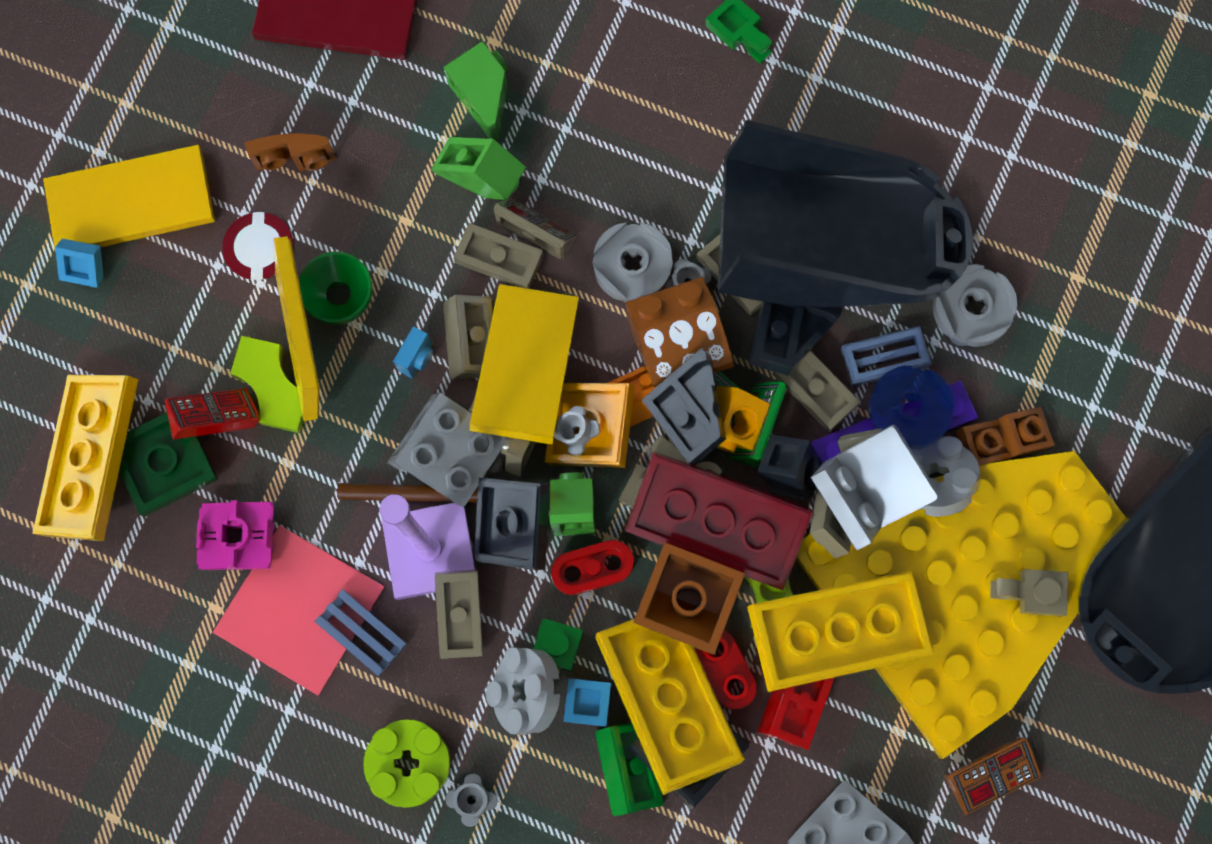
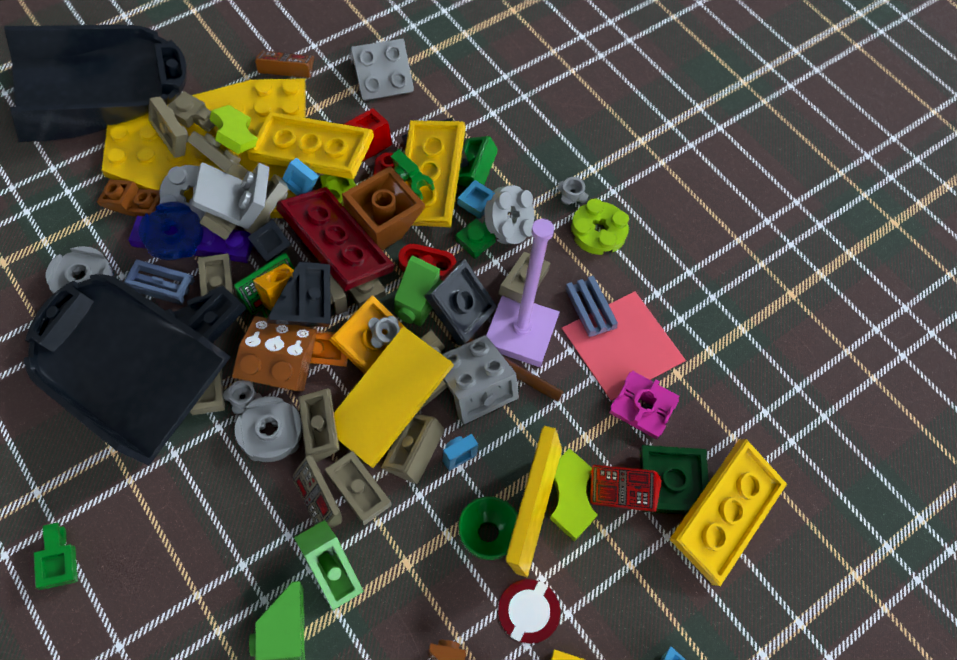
camera: 160 degrees left, 15 degrees down
(581, 291) = (318, 424): none -> dark tan slope
(688, 664) = (410, 172): none -> green plate
(816, 571) = (299, 177): none -> dark azure plate
(941, 539) = (225, 159): none -> dark tan plate
(967, 602) = (233, 129): none -> lime tile
(1051, 551) = (167, 126): none -> dark tan plate

